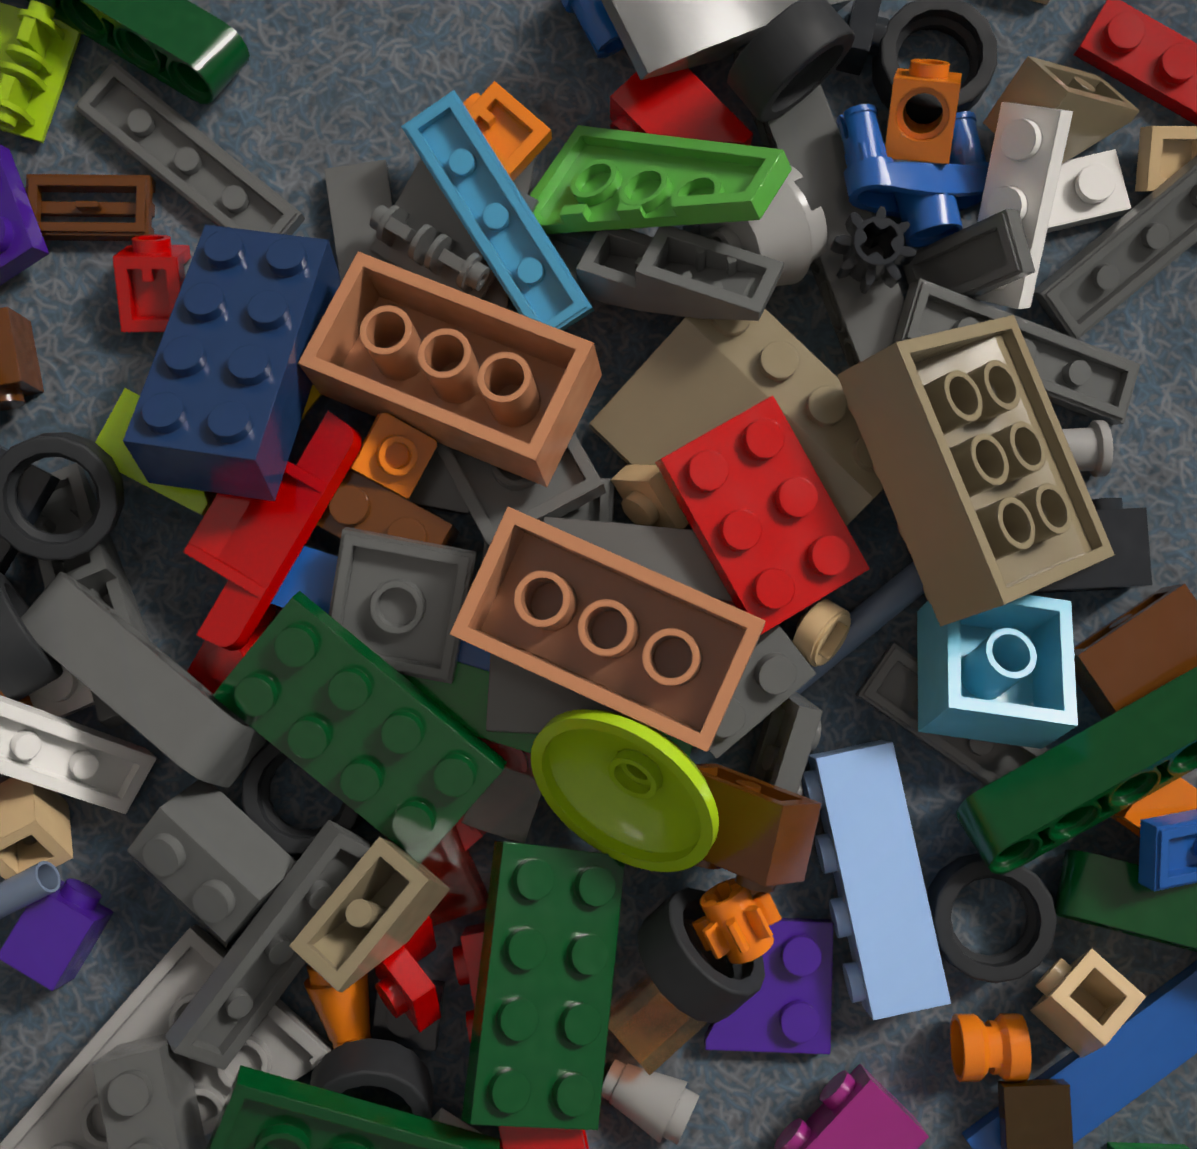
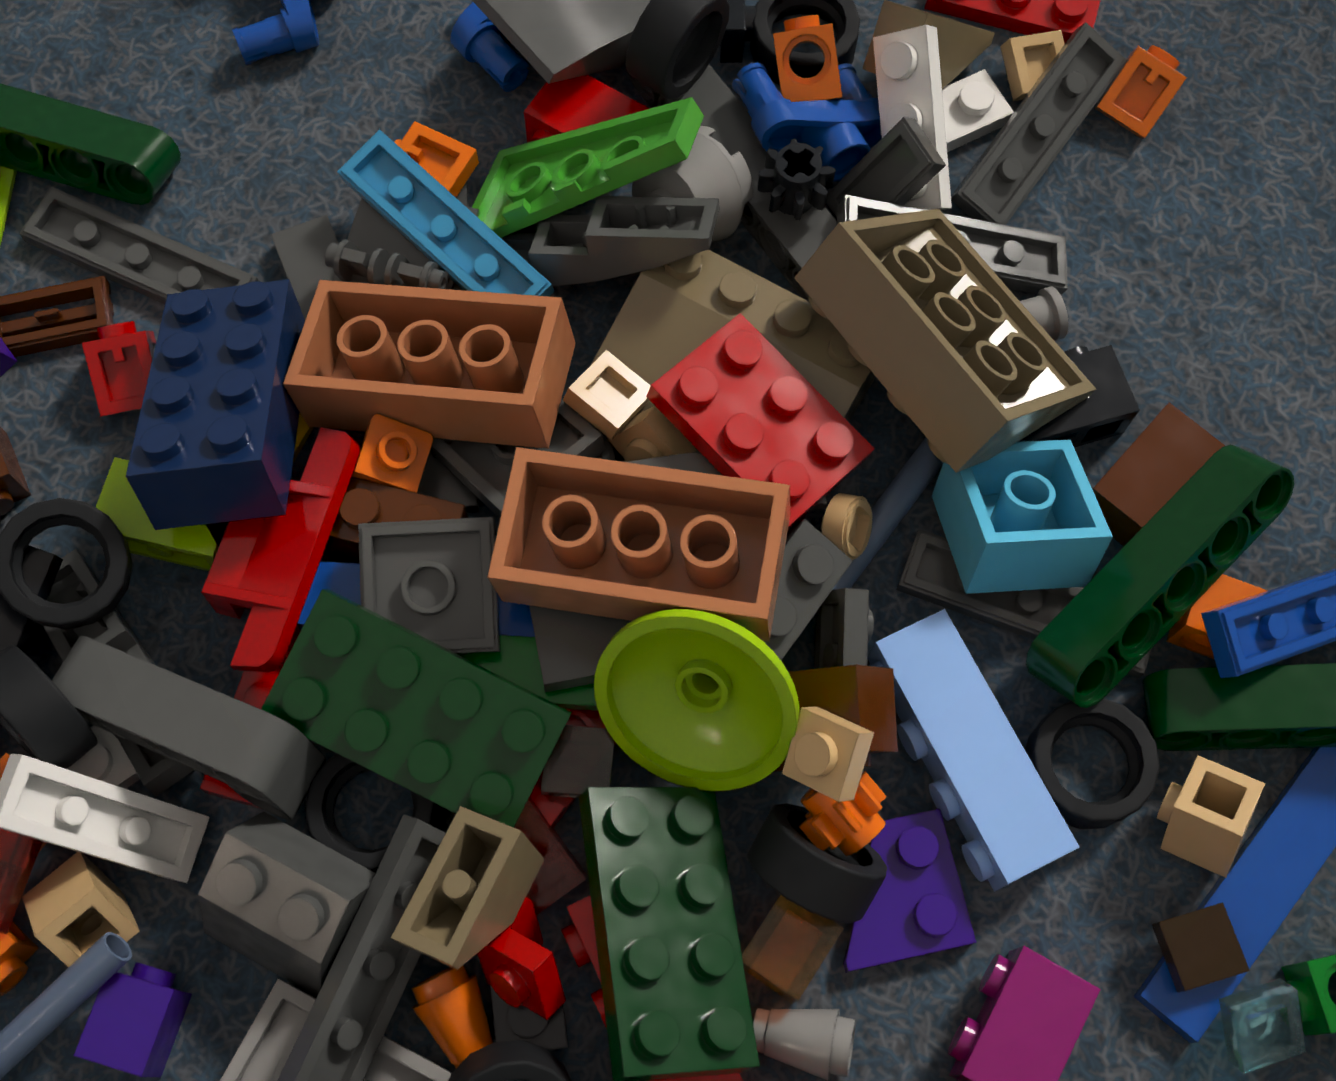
camera: 20 degrees left, 15 degrees down
(621, 442) = (608, 395): none -> plate
(733, 879) = (828, 753): none -> tan plate
(995, 1046) = (1133, 891): orange wheel -> none

